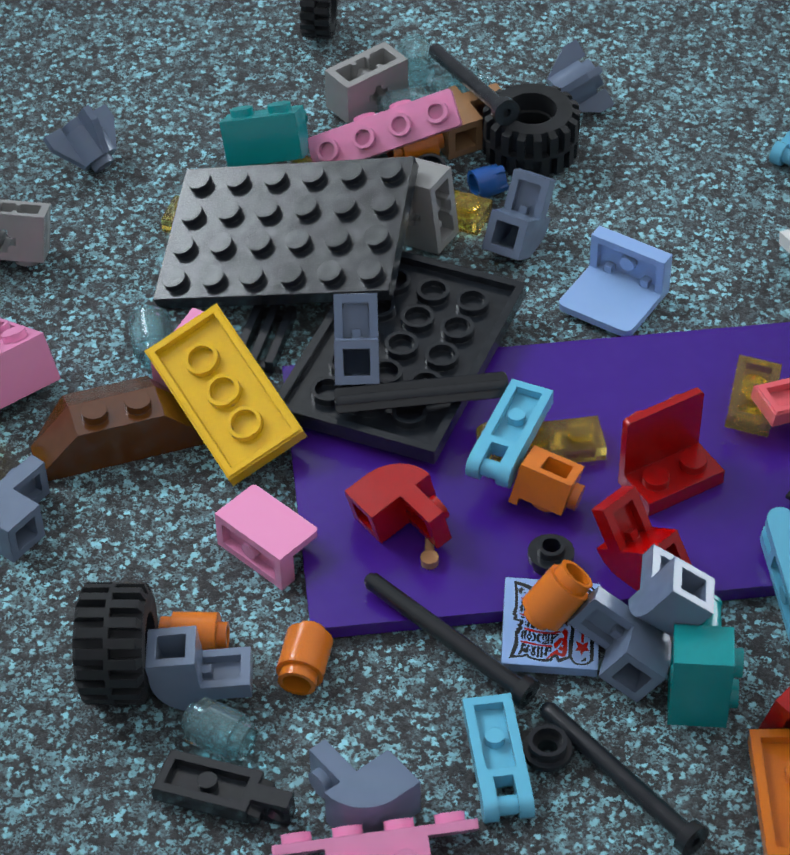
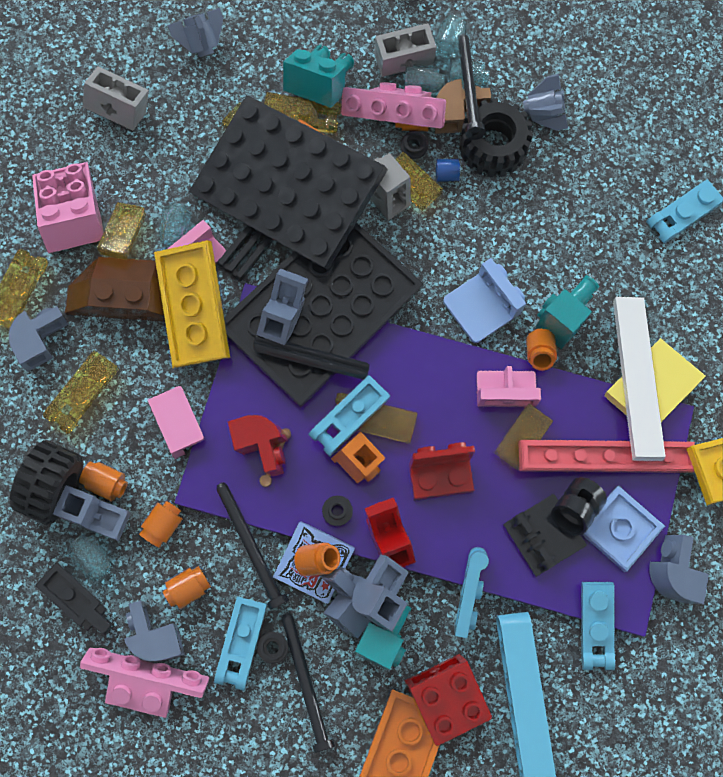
camera: 15 degrees right, 30 degrees up
(81, 361) = (121, 230): none -> clear yellow plate
(109, 543) = (81, 391): none -> clear yellow plate
(382, 716) = (186, 587): none -> orange brick
(523, 220) = (450, 220): sand blue brick -> none
(701, 358) = (507, 388): none -> bright pink panel
(718, 306) = (541, 349): none -> orange brick
(727, 258) = (567, 311): none -> teal brick

